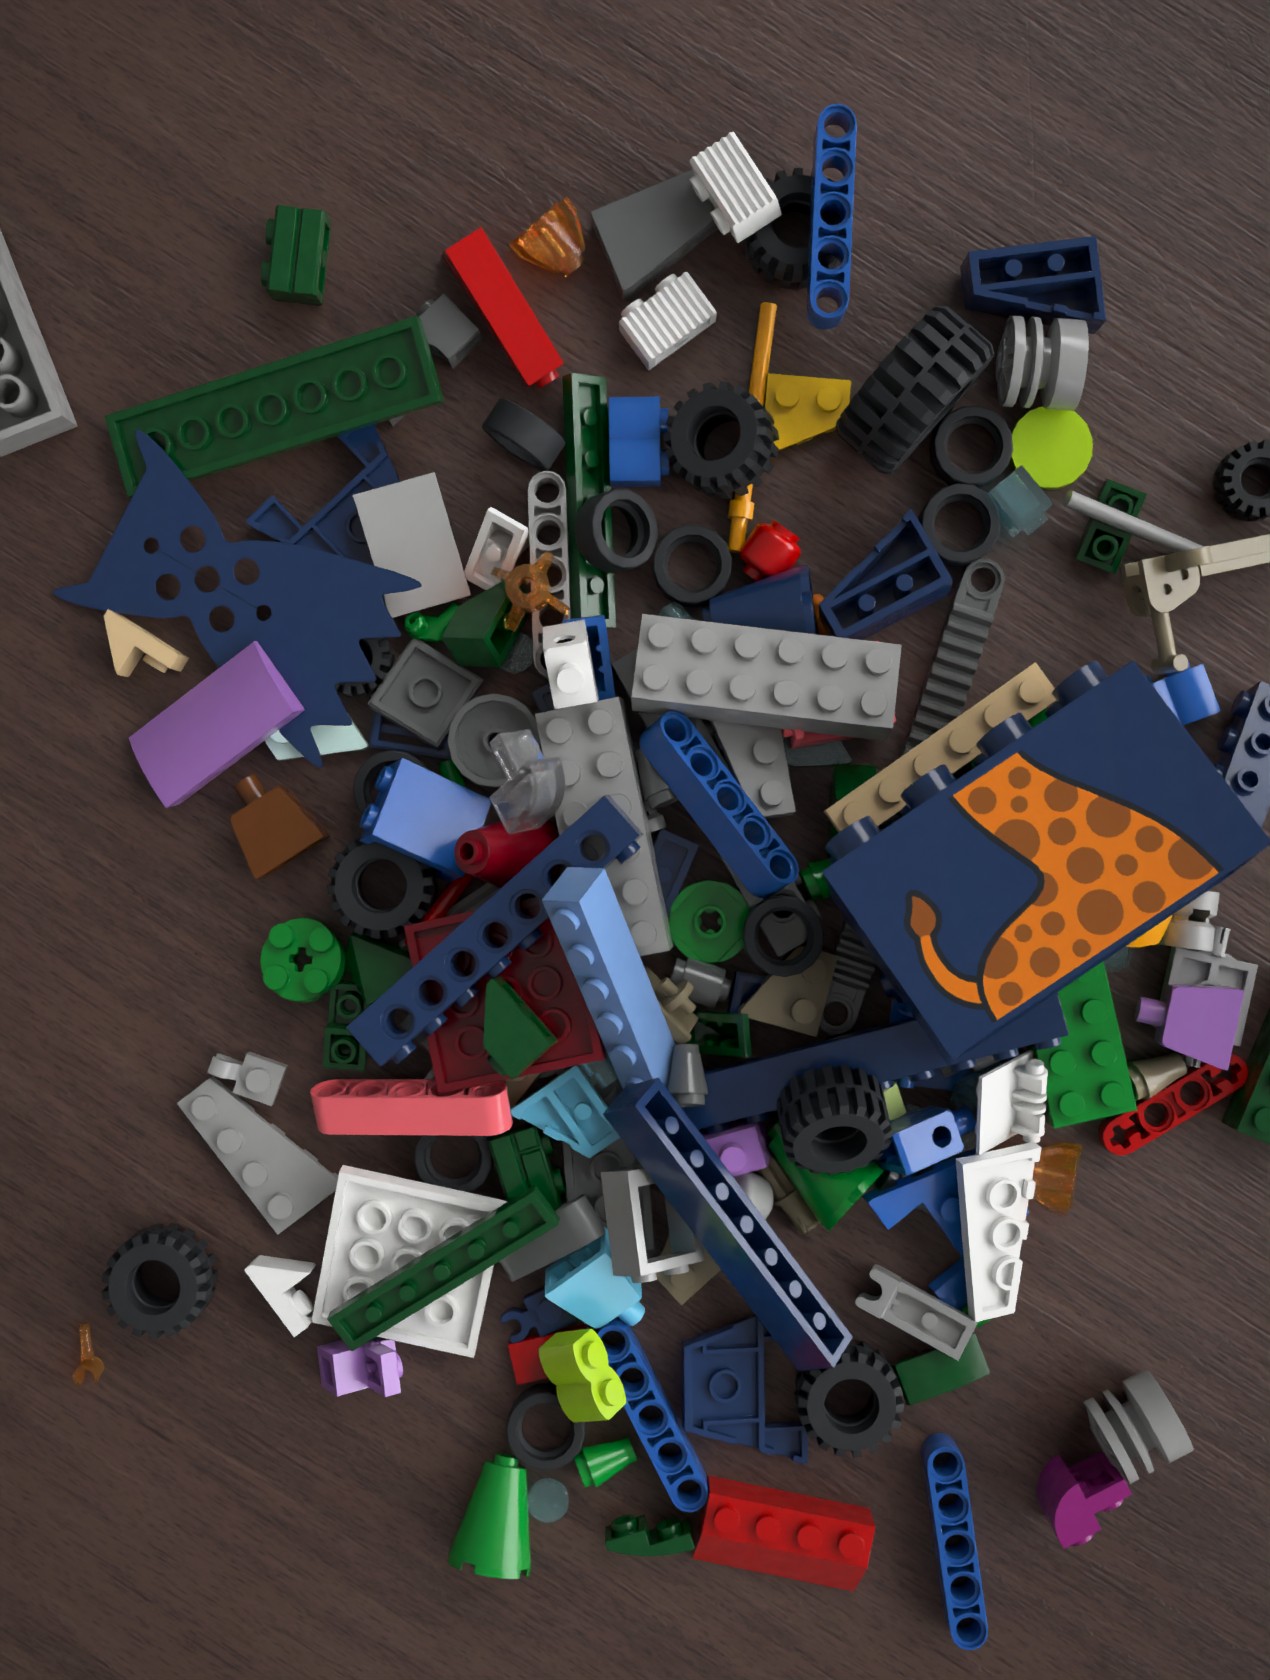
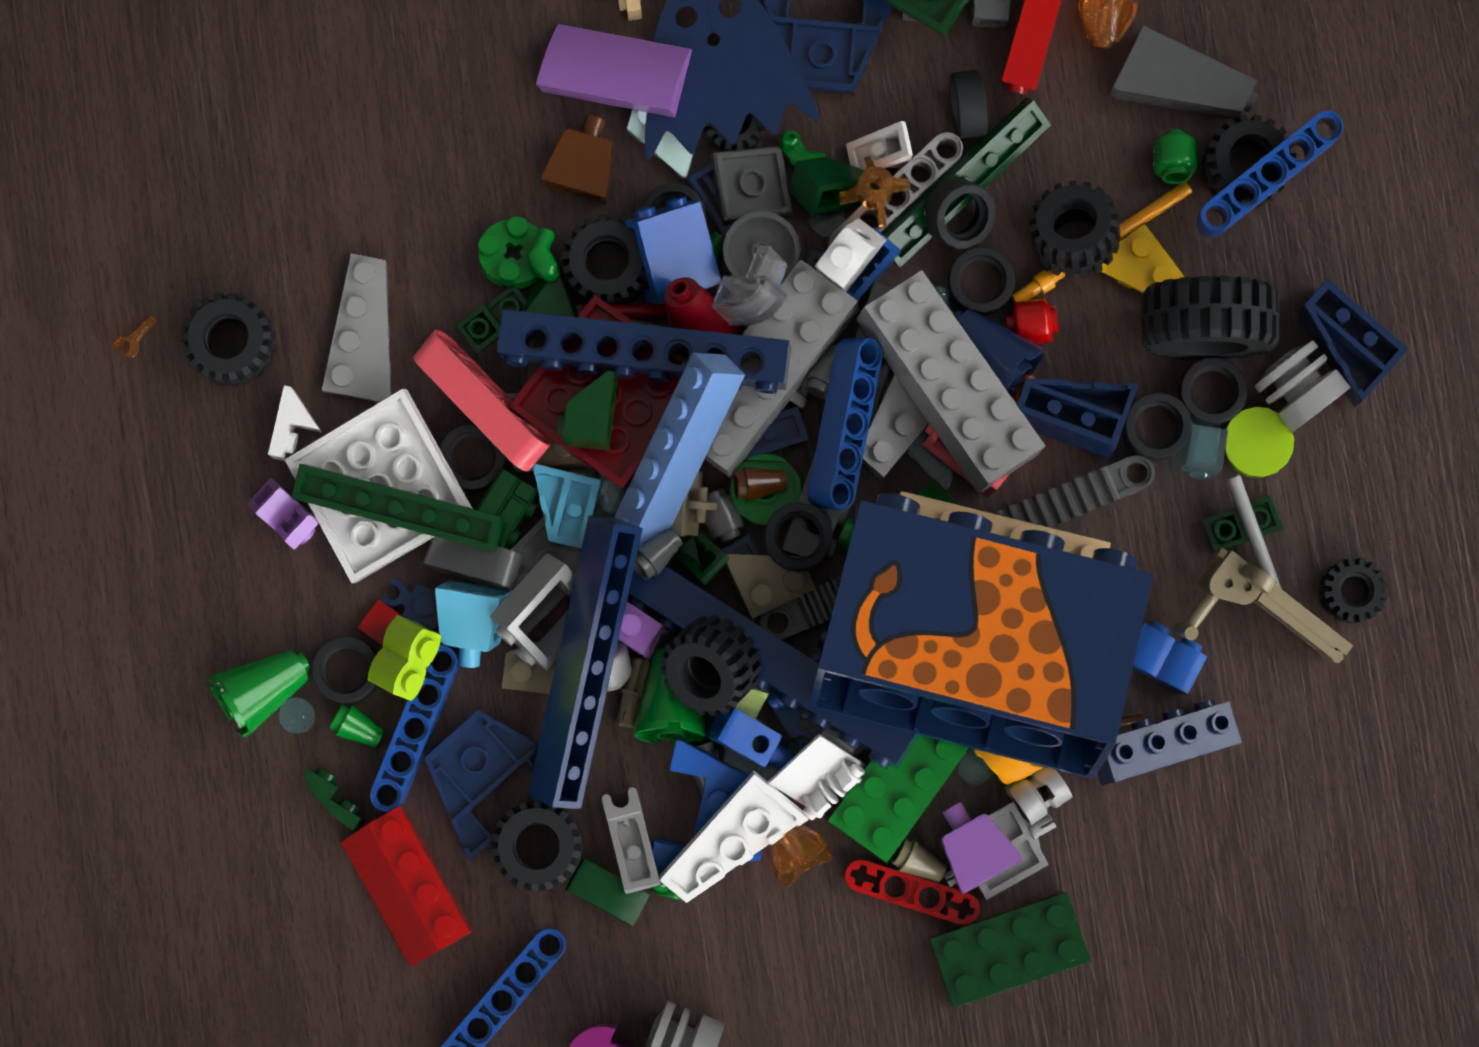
camera: 50 degrees right, 5 degrees down
(255, 1078) = (411, 288): light grey plate -> none
(328, 942) = (541, 257): none -> green arm
(413, 537) = (843, 90): light grey tile -> none
(636, 441) = (1026, 178): blue brick -> none
(666, 319) = (1120, 130): white brick -> none
(700, 926) = (756, 482): none -> reddish brown cone
(734, 187) = (1235, 99): white brick -> none
(734, 290) = (1175, 156): none -> green head

